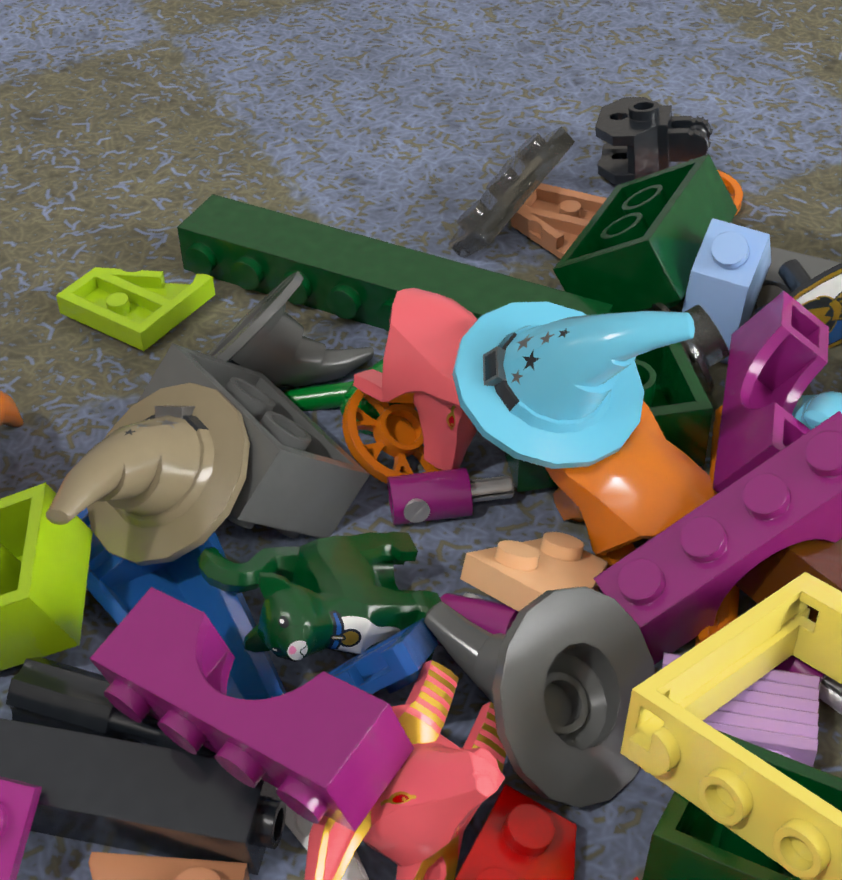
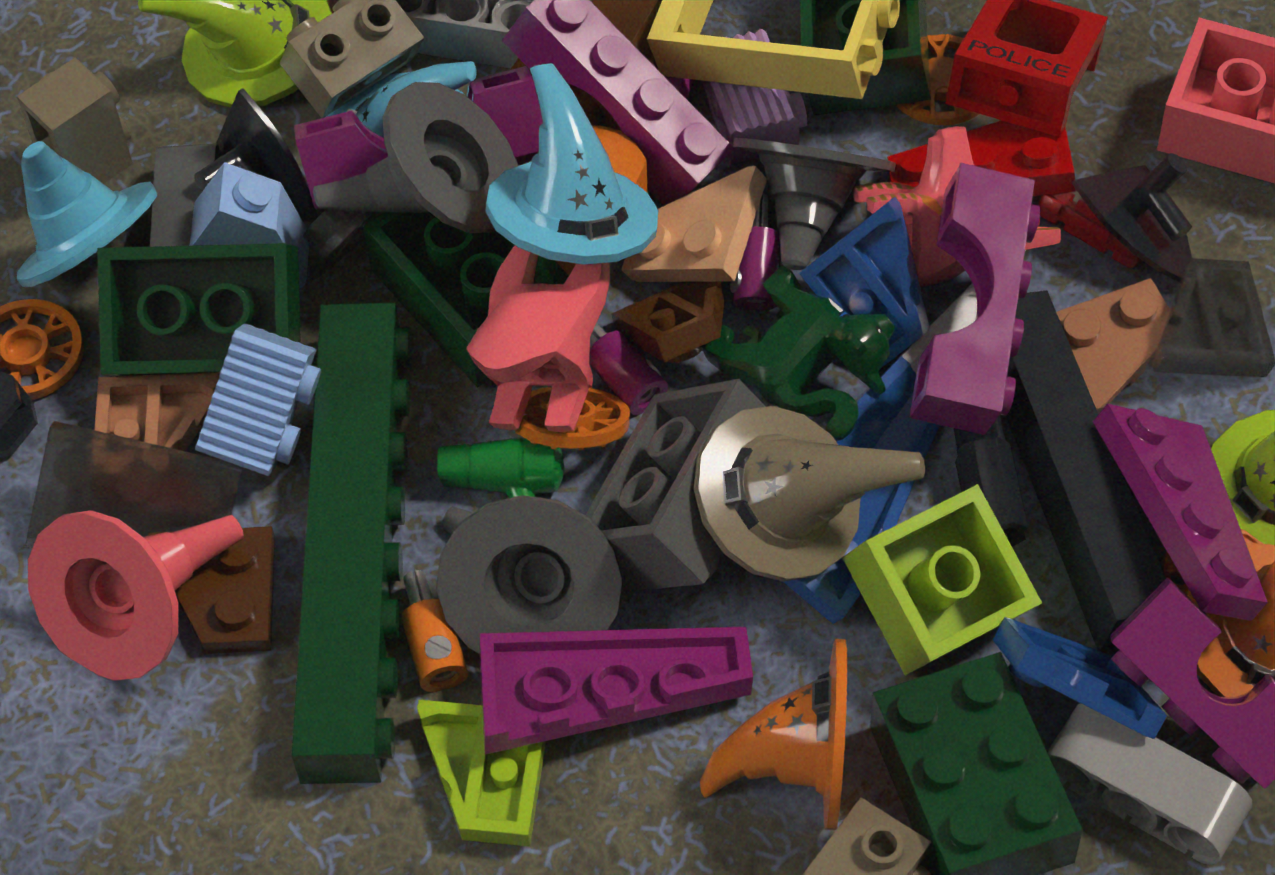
camera: 115 degrees left, 15 degrees up
(133, 340) = (596, 679): none -> magenta wing
(240, 298) = (431, 639): none -> orange piece
(410, 226) = (233, 595): none -> reddish brown wing
(414, 152) = (112, 592): none -> coral piece
(440, 518) = (674, 321): none -> reddish brown wing
(534, 237) = (258, 399): none -> light blue brick
(722, 372) = (437, 161): none -> dark grey piece
(790, 179) = (72, 213): none -> medium azure piece

